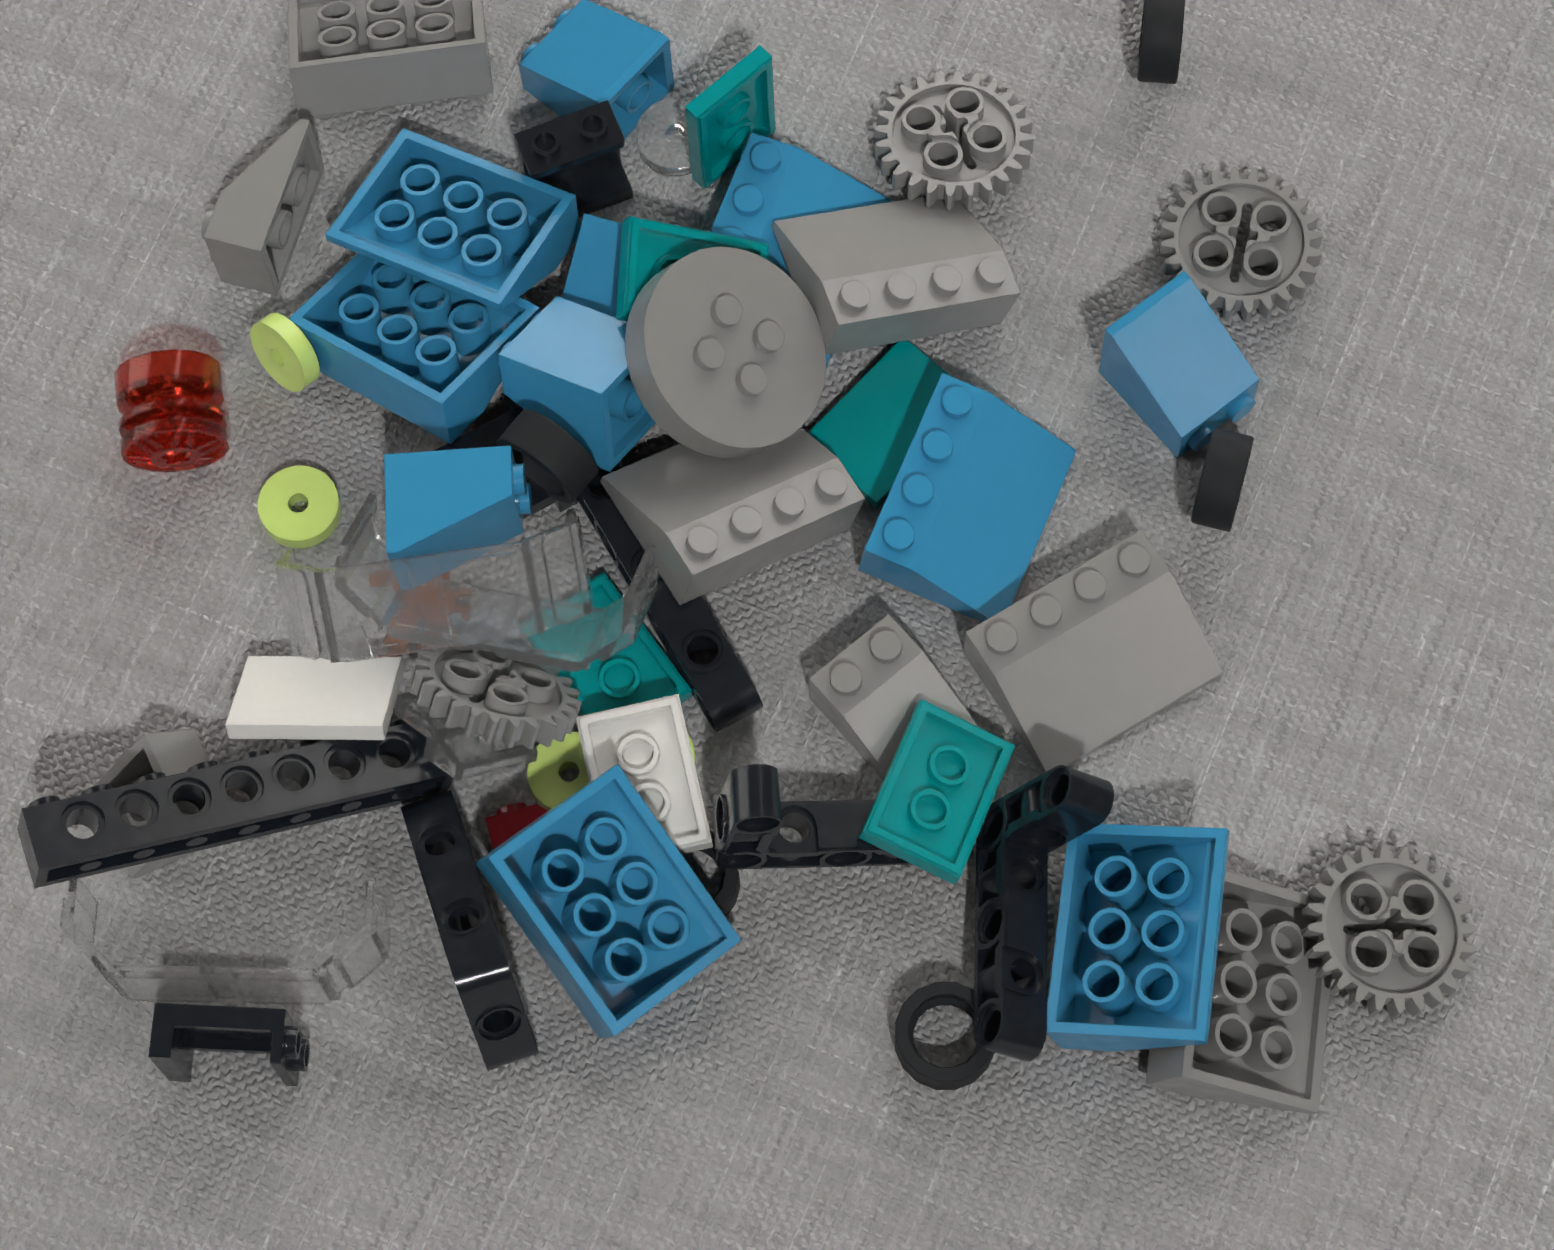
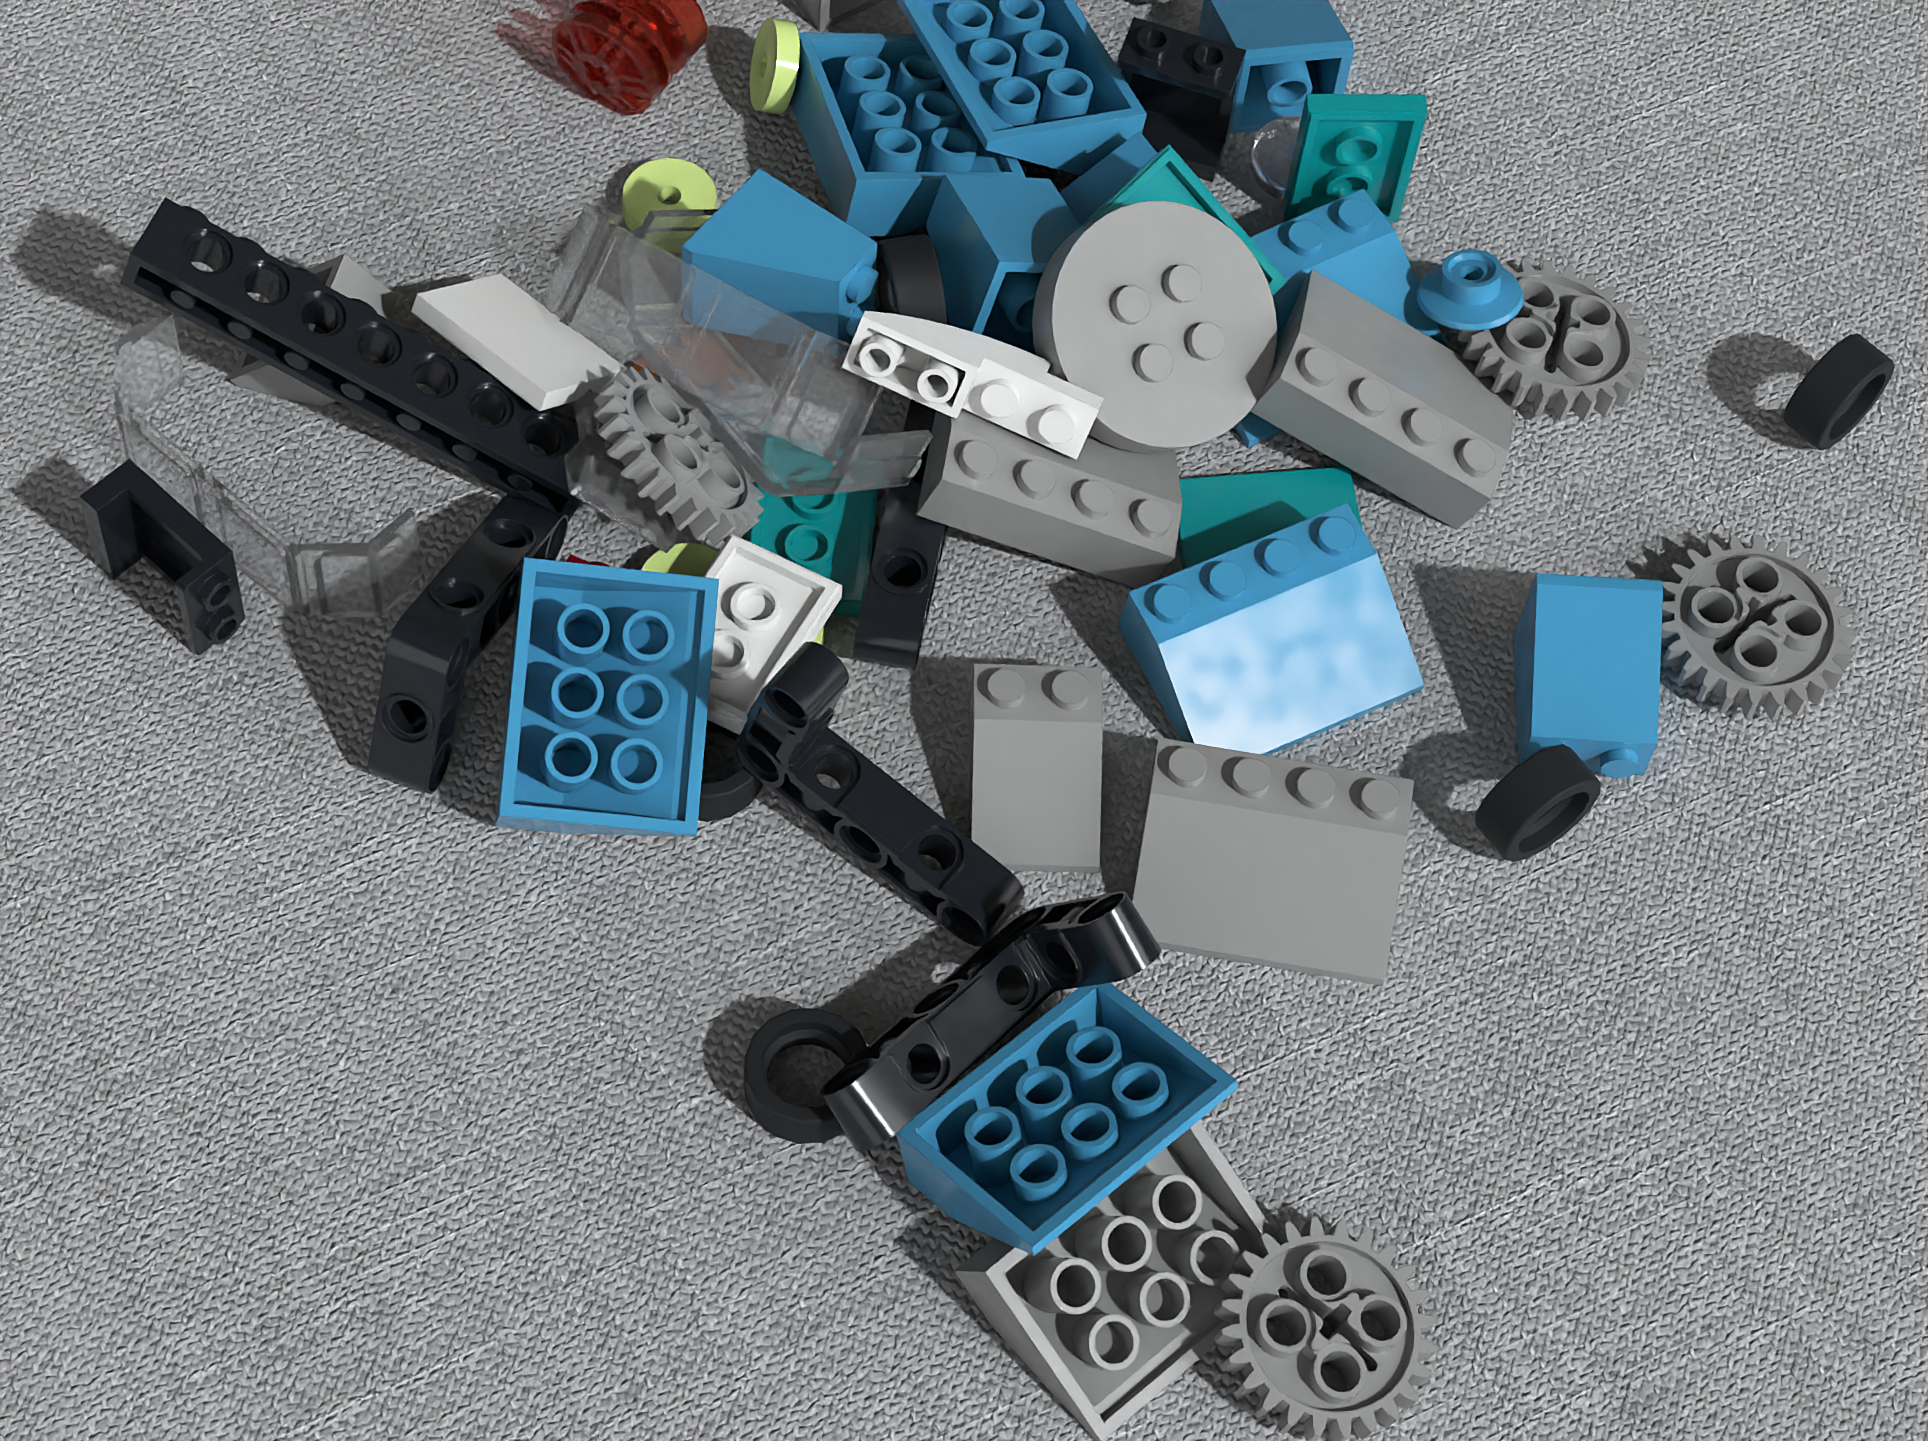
camera: 30 degrees right, 10 degrees down
(638, 487) = (975, 373): none -> white slope
(882, 168) = (1470, 292): none -> dark azure piece
(937, 792) = (999, 851): teal tile -> none

